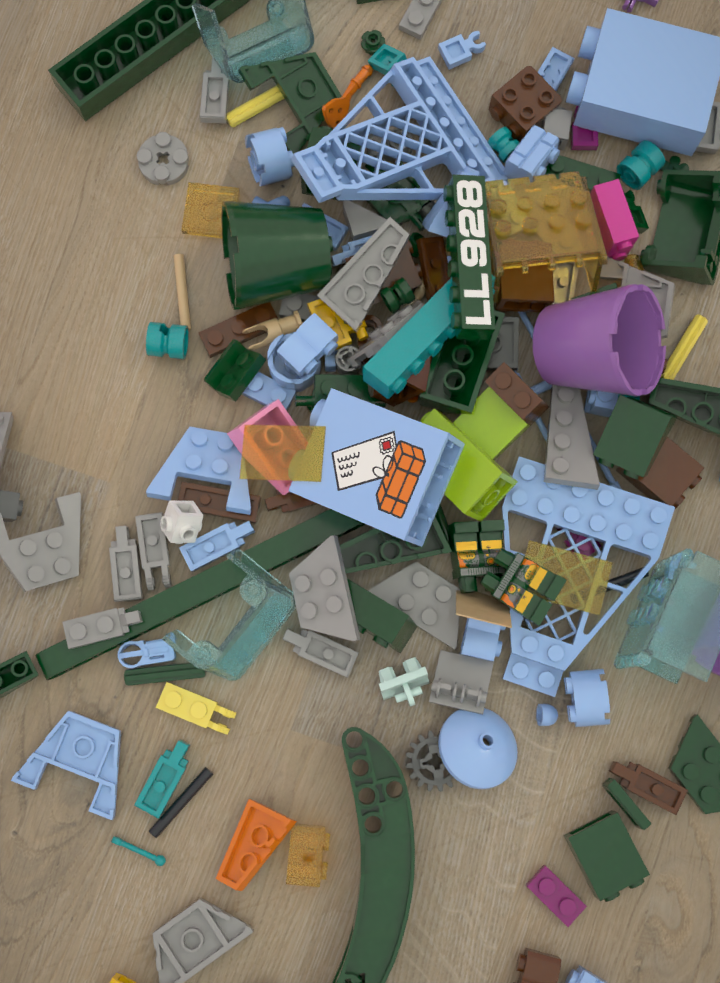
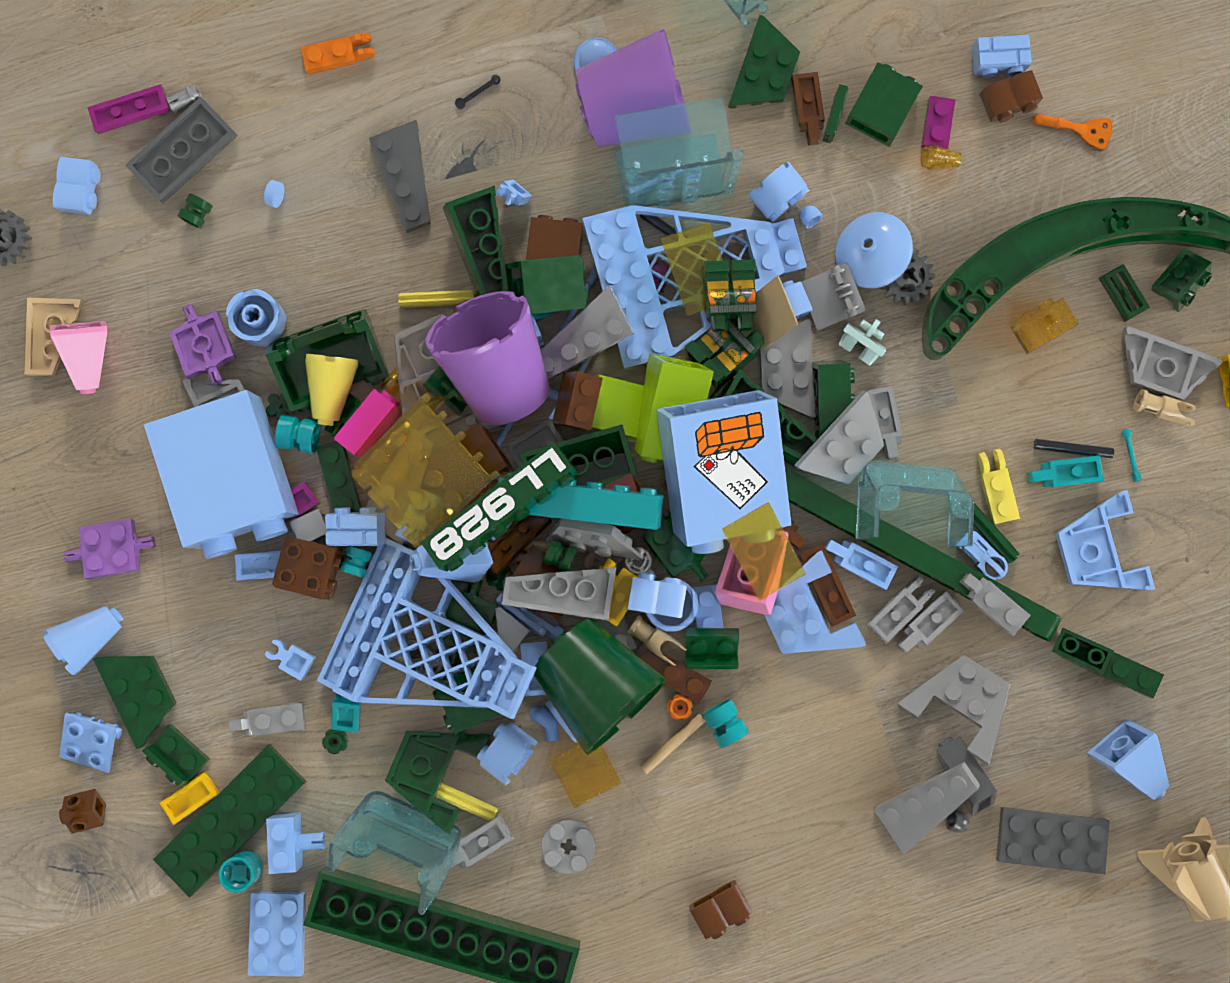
camera: 120 degrees left, 5 degrees up
(26, 238) = (720, 910): none -> reddish brown brick
(159, 910) = (1164, 407): none -> tan piece
(181, 521) = (867, 600): white brick -> none
(204, 310) = (685, 712): none -> orange plate
(252, 844) = (1065, 371): orange wing -> none
(285, 954) = (1115, 297): none -> dark green tile
(334, 117) = (423, 726): orange piece -> none
(523, 871) = (940, 158): none -> clear yellow cone
(666, 212) = (329, 385): none -> light yellow cone

